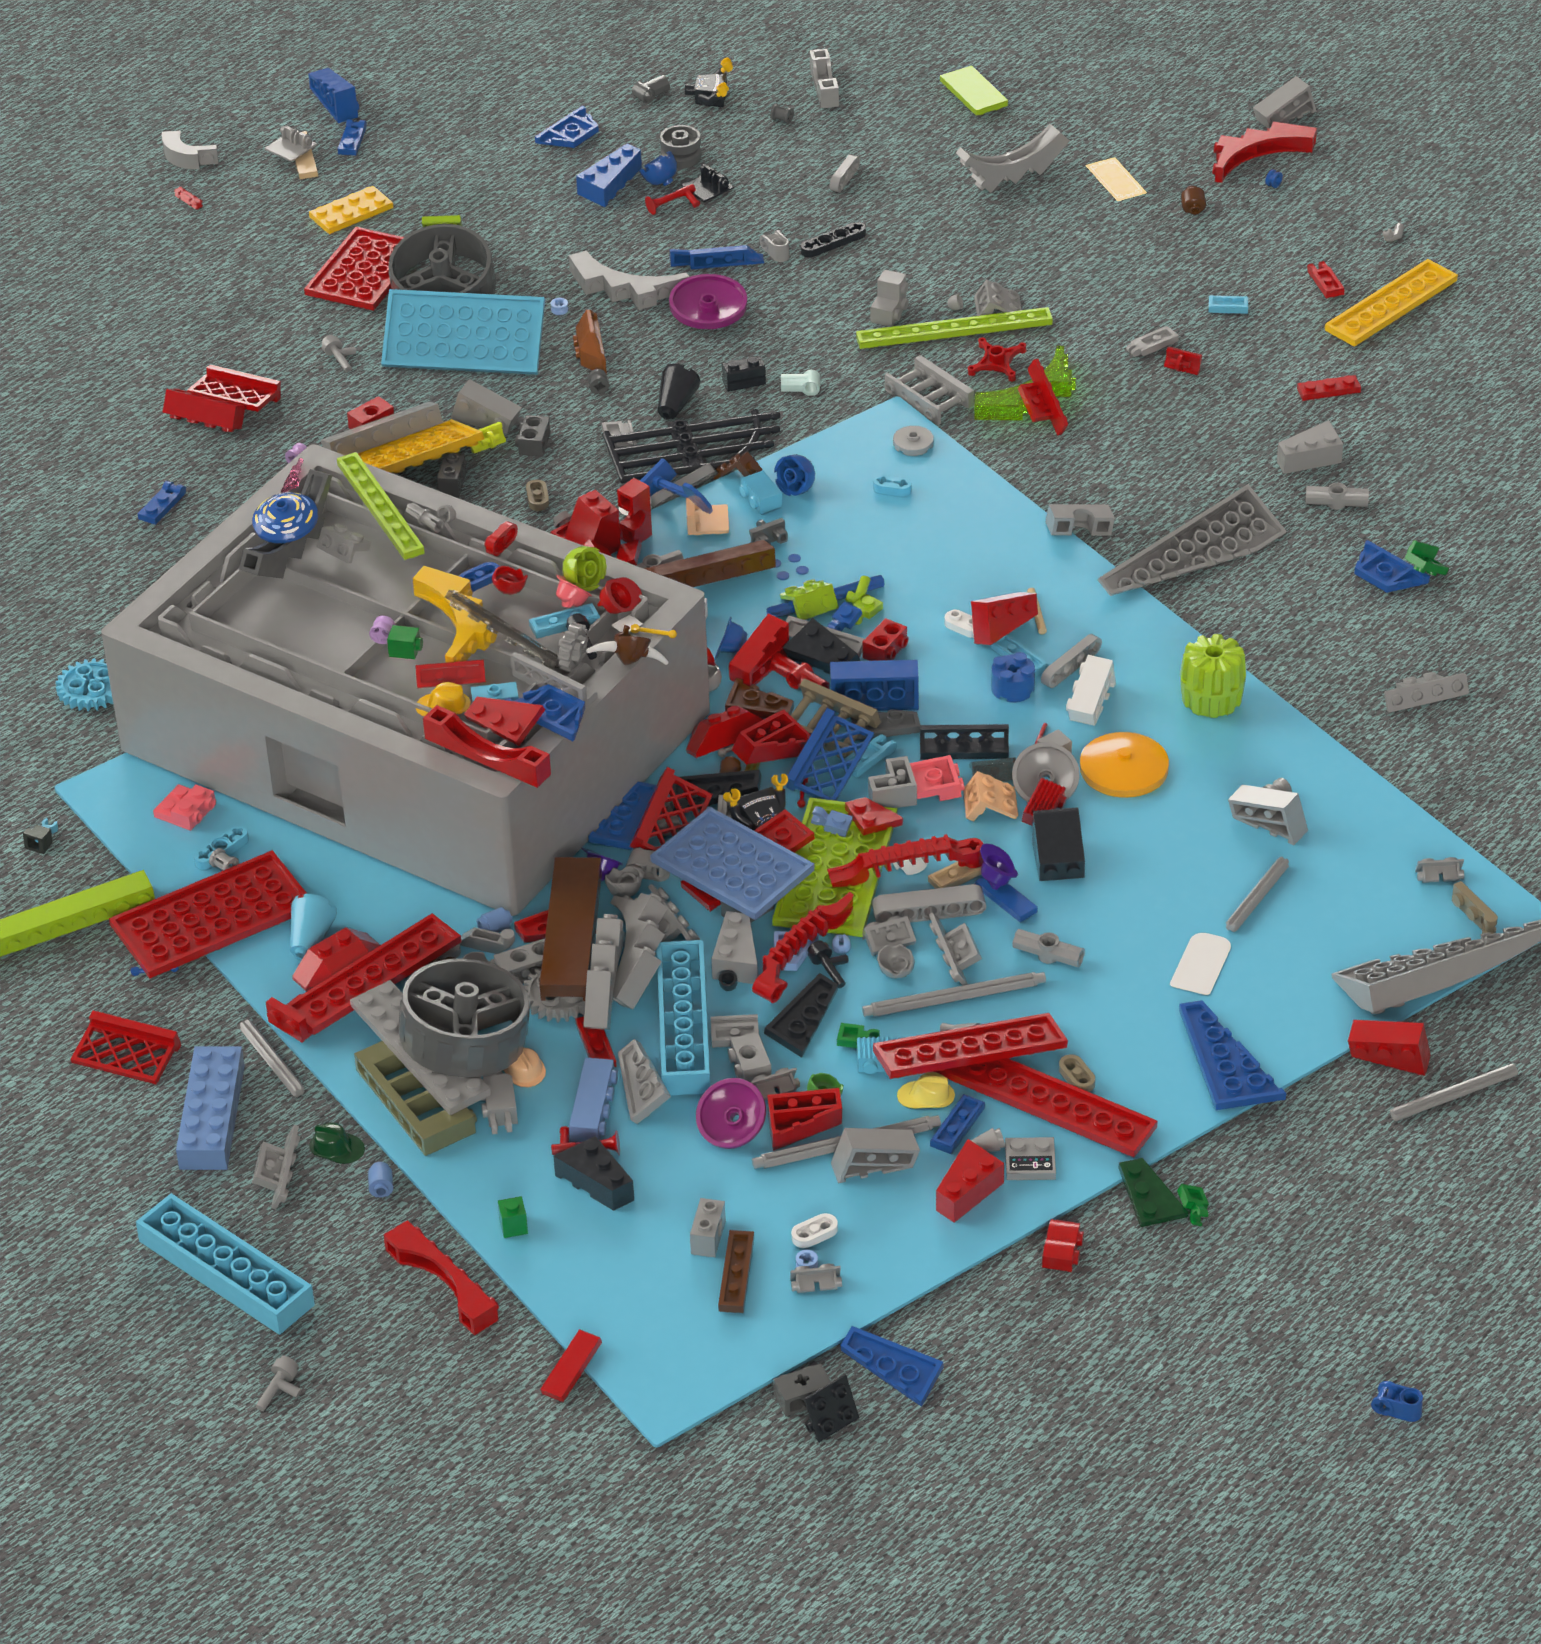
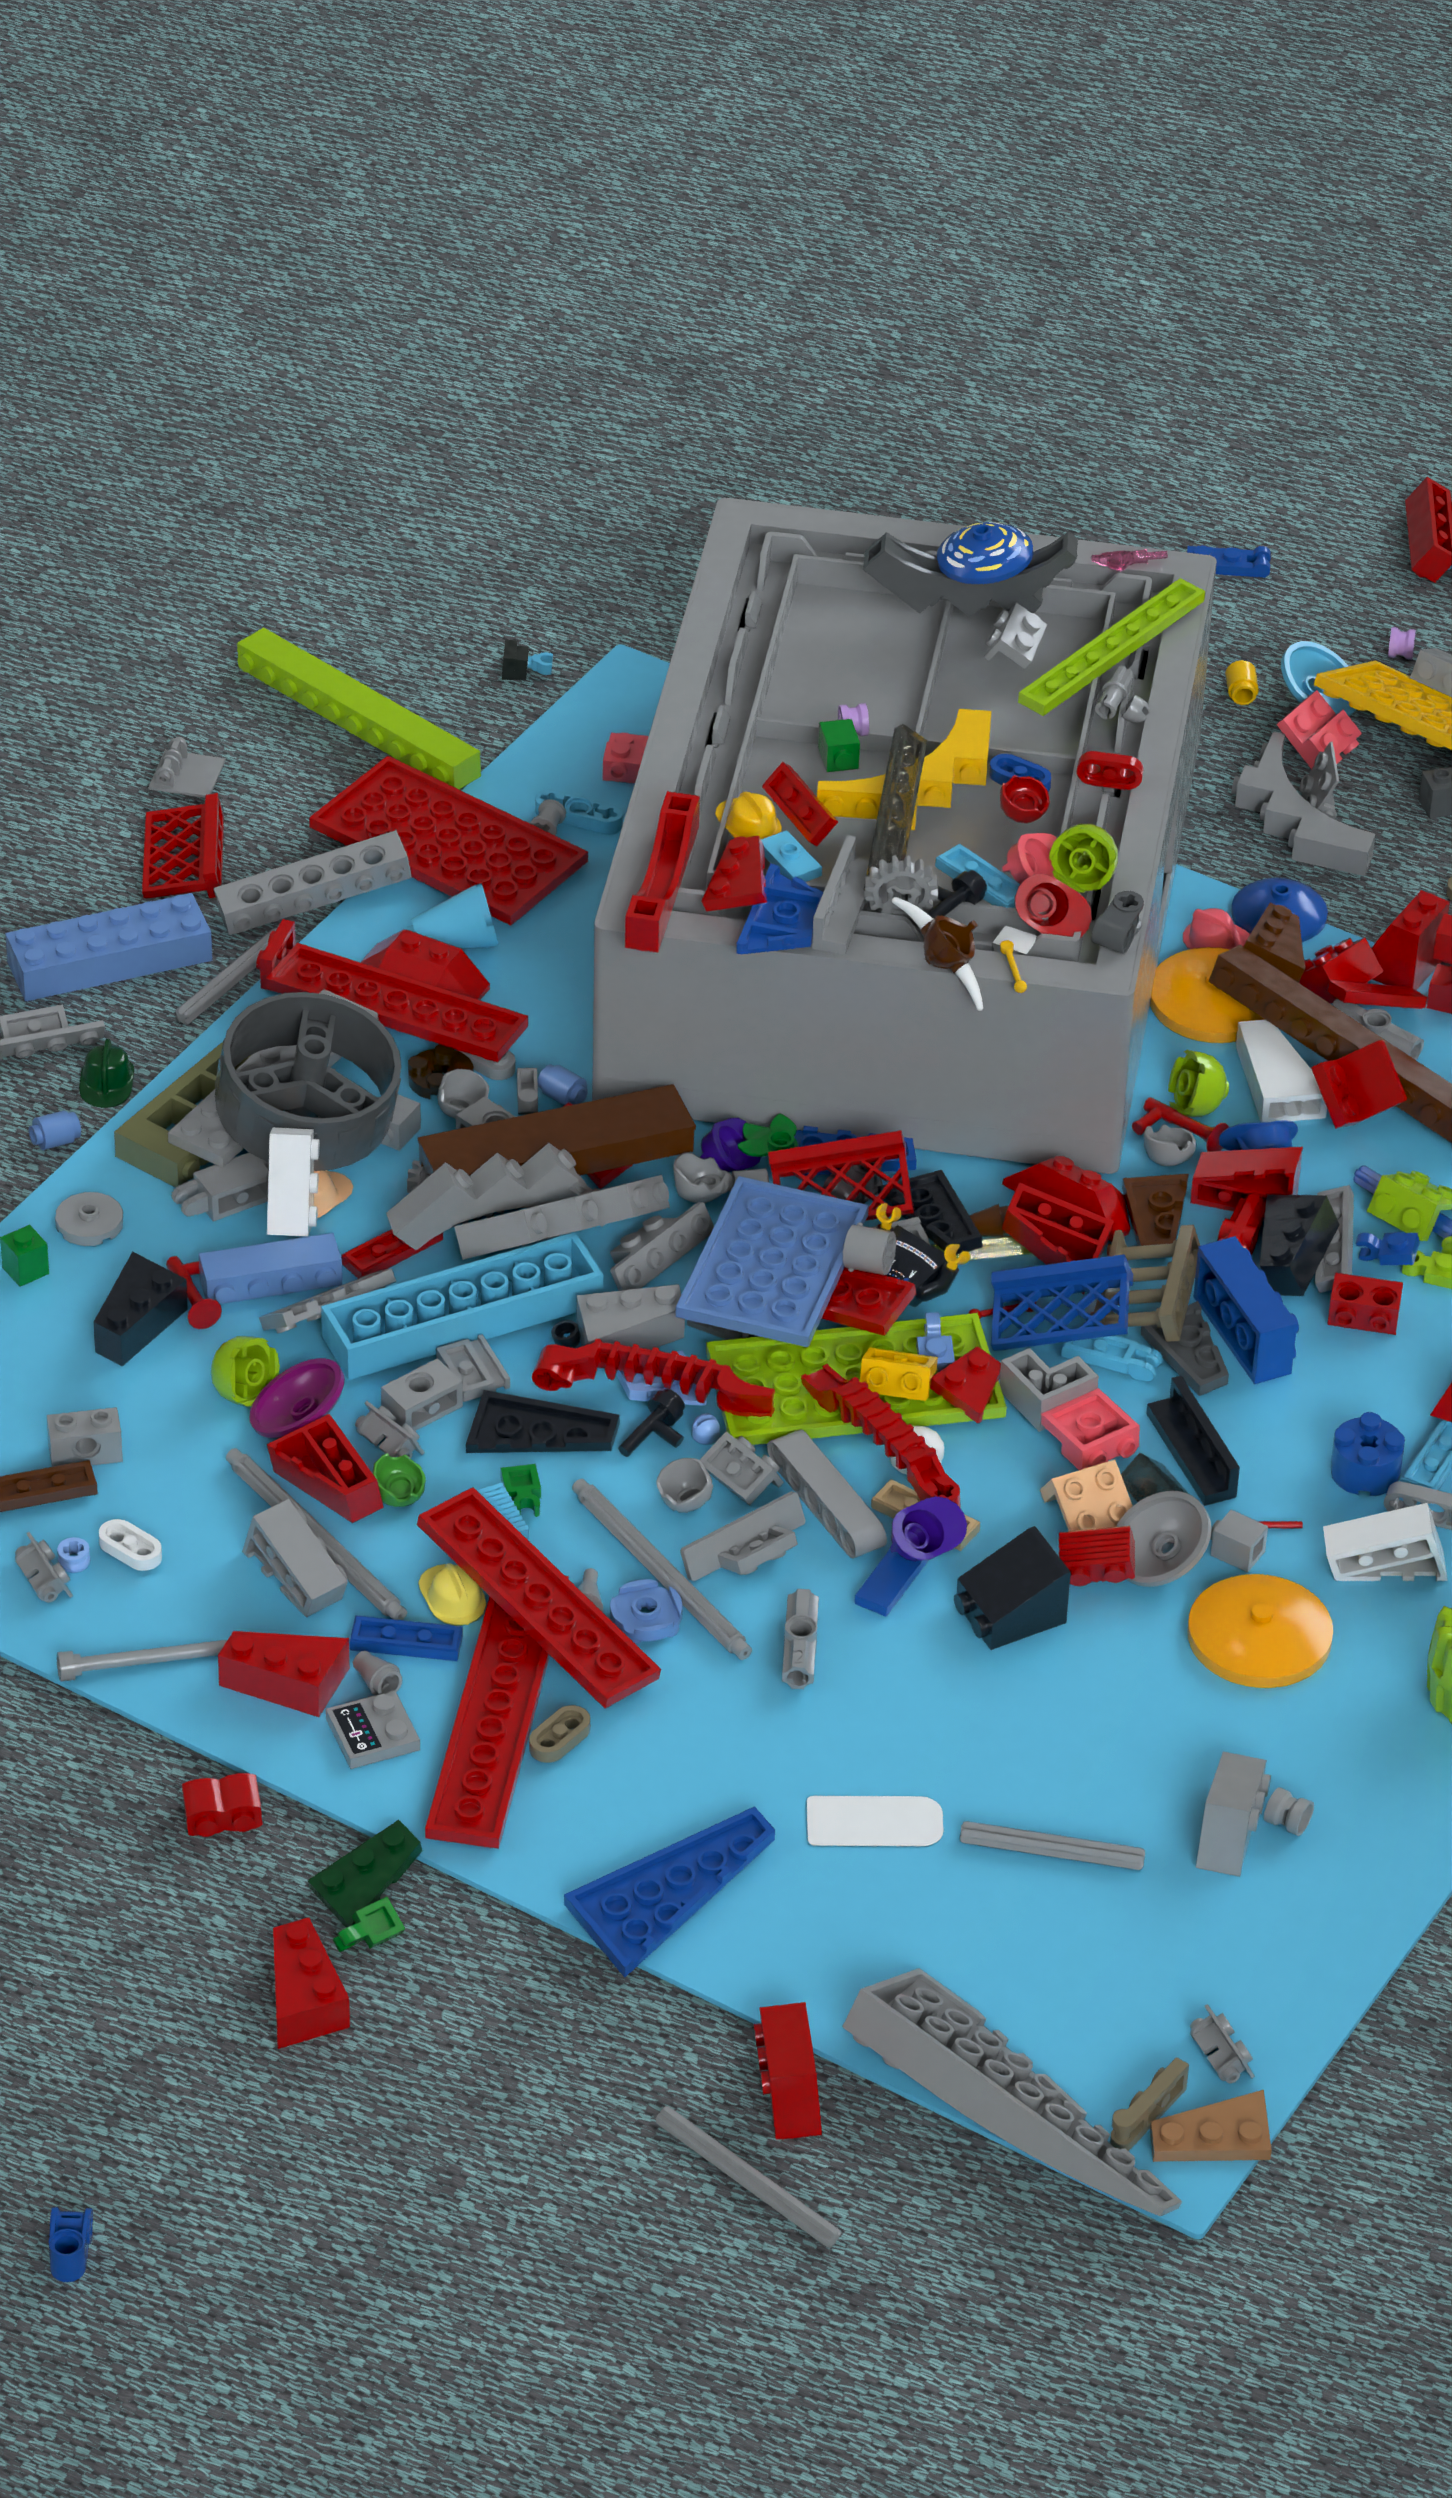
camera: 65 degrees right, 0 degrees up
(40, 1028) = (186, 772): none -> light grey hinge
(219, 985) = (312, 882): none -> light grey brick
(485, 1181) = (89, 1218): none -> light grey plate
(547, 1057) = (292, 1182): none -> white wedge
(608, 839) = (761, 1139): none -> green plate
(648, 573) = (1119, 922): none -> dark grey piece
(685, 1135) = (243, 1368): none -> lime cylinder
(714, 578) = (1359, 1084): none -> red bracket
(754, 813) = (869, 1249): none -> light grey piece
(852, 839) = (898, 1373): none -> yellow bracket
(911, 1285) = (72, 1665): none -> light grey piece
(977, 1007) = (652, 1626): none -> medium blue plate
(1231, 1241) = (306, 1986): none -> red wedge
(1499, 890) = (1215, 2132): none -> medium nougat wing

